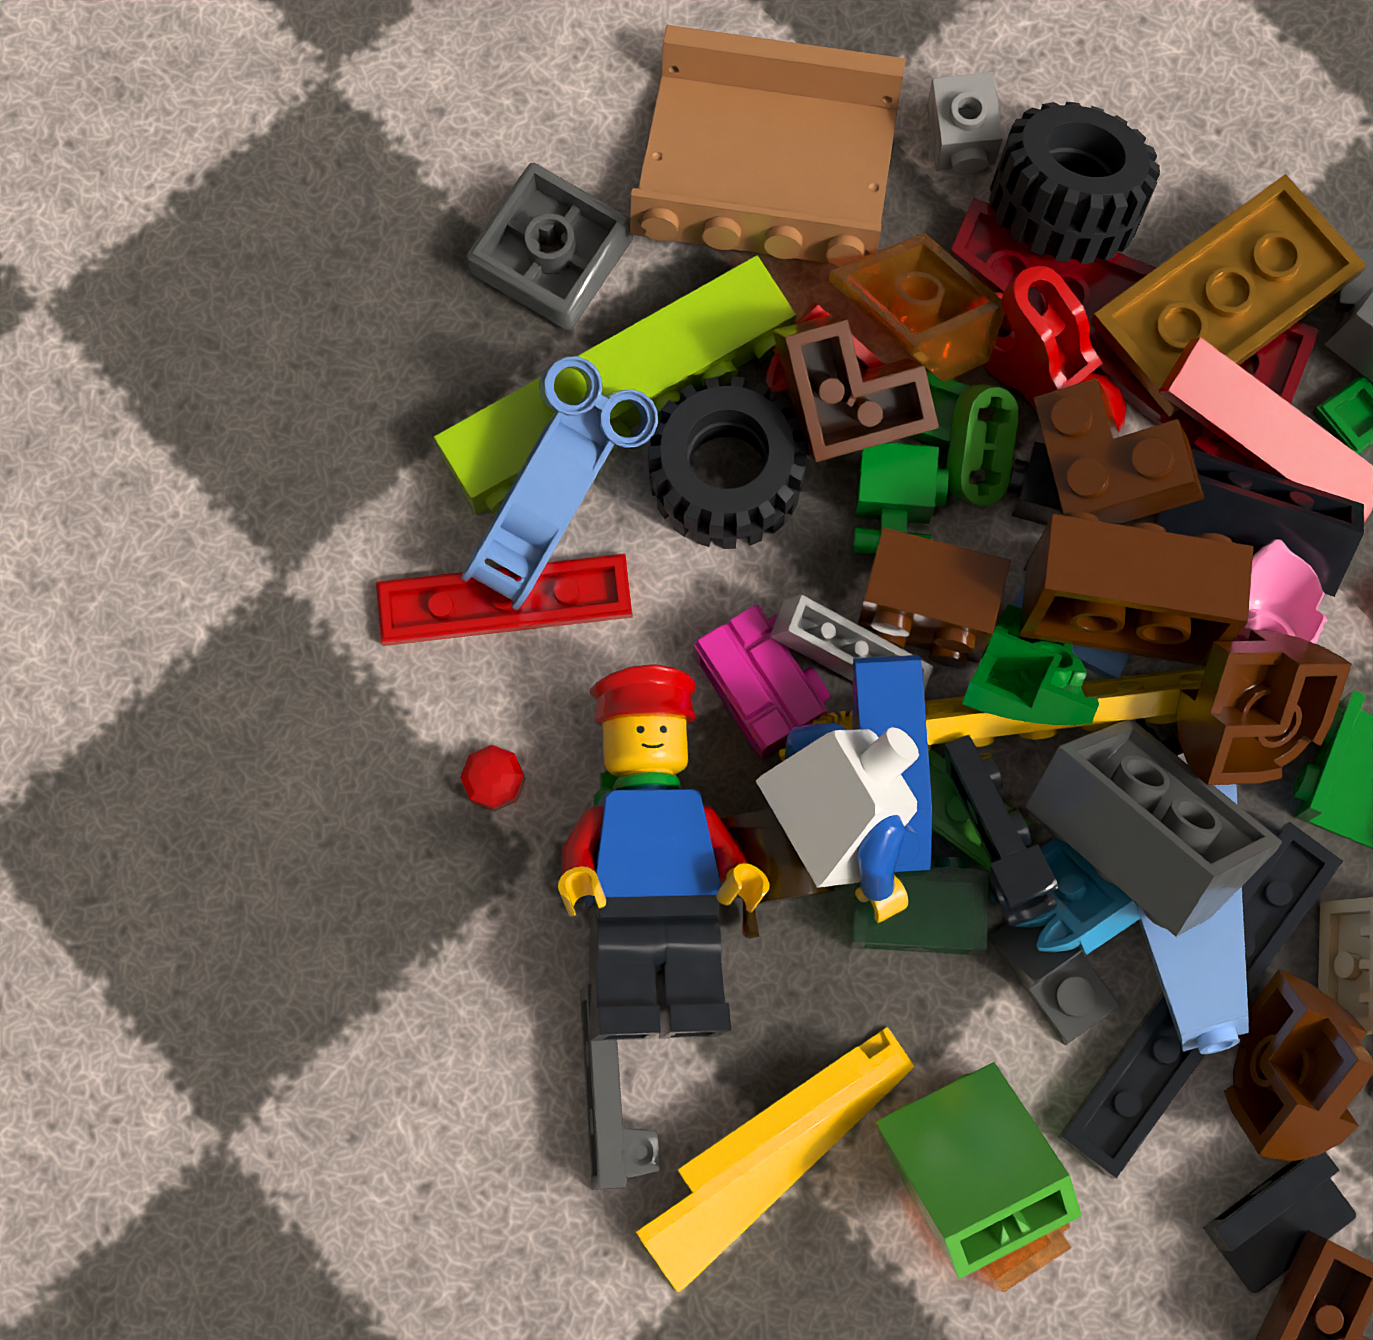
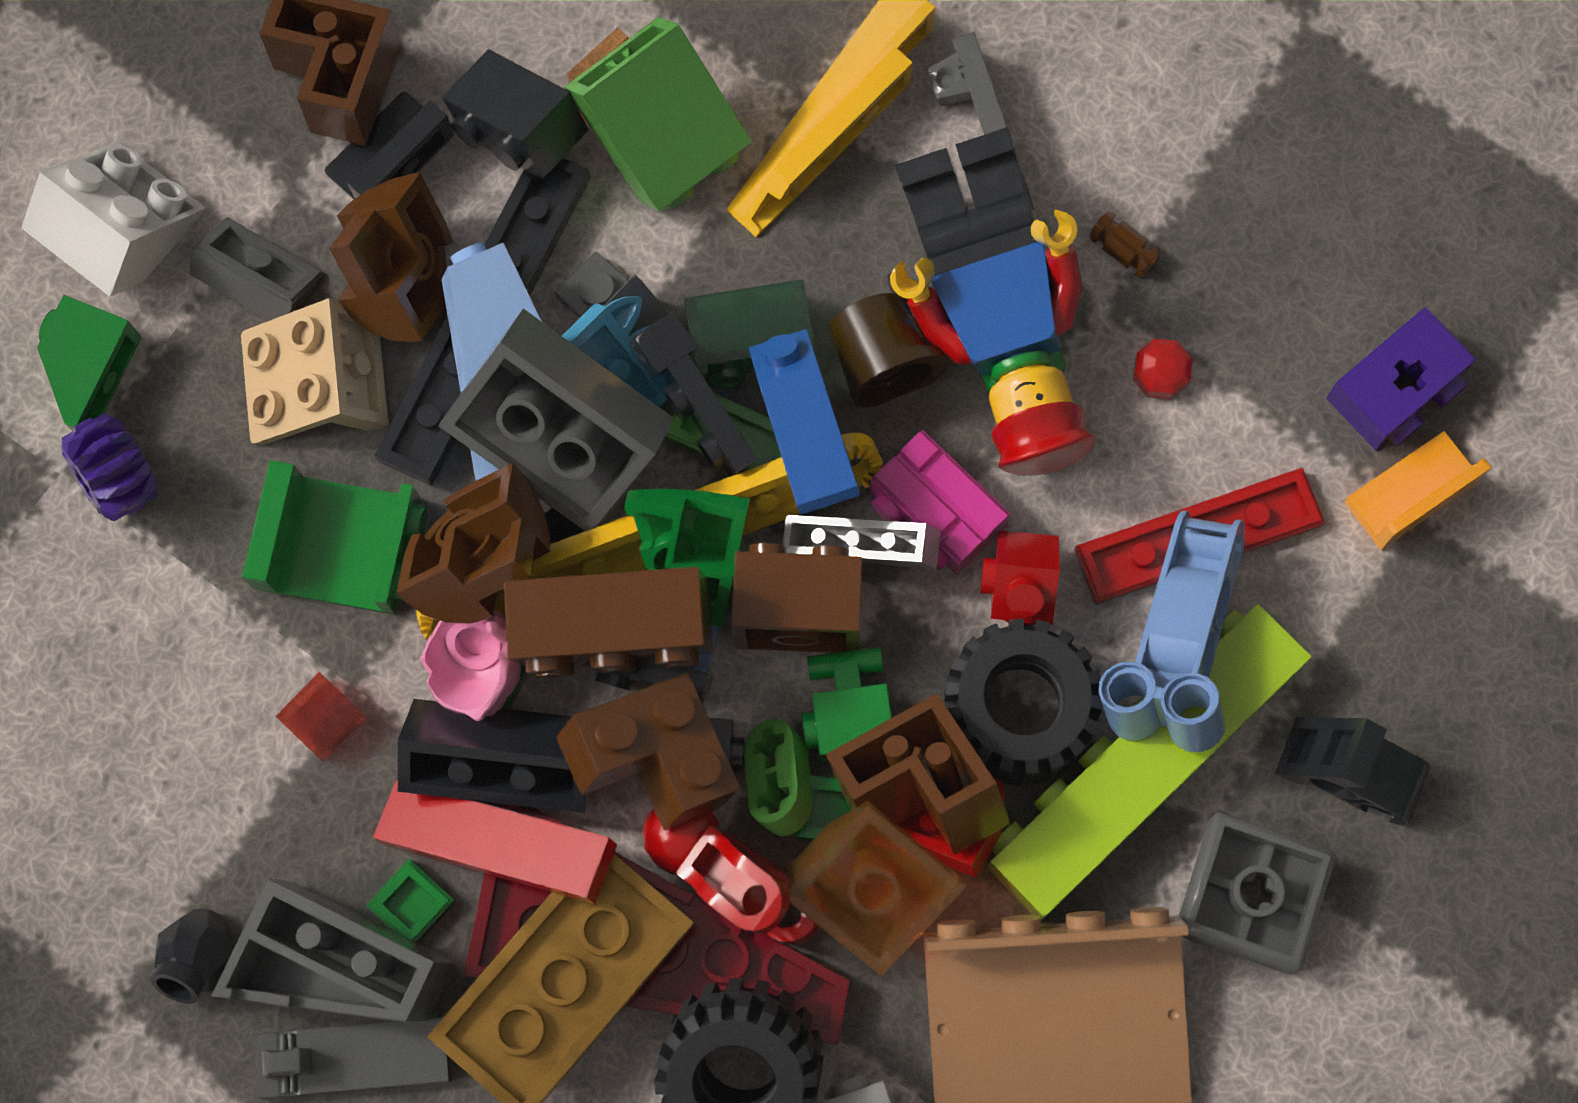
camera: 170 degrees right, 0 degrees up
(273, 590) = (1414, 489): none -> light orange panel
(287, 702) = (1416, 350): none -> dark purple brick
(427, 336) = (1354, 765): none -> black tile
(494, 923) = (1125, 244): none -> reddish brown piece
(695, 580) = (1022, 577): none -> red brick
(846, 807) = (842, 361): white torso -> none
(1139, 1214) = (514, 114): none -> black brick

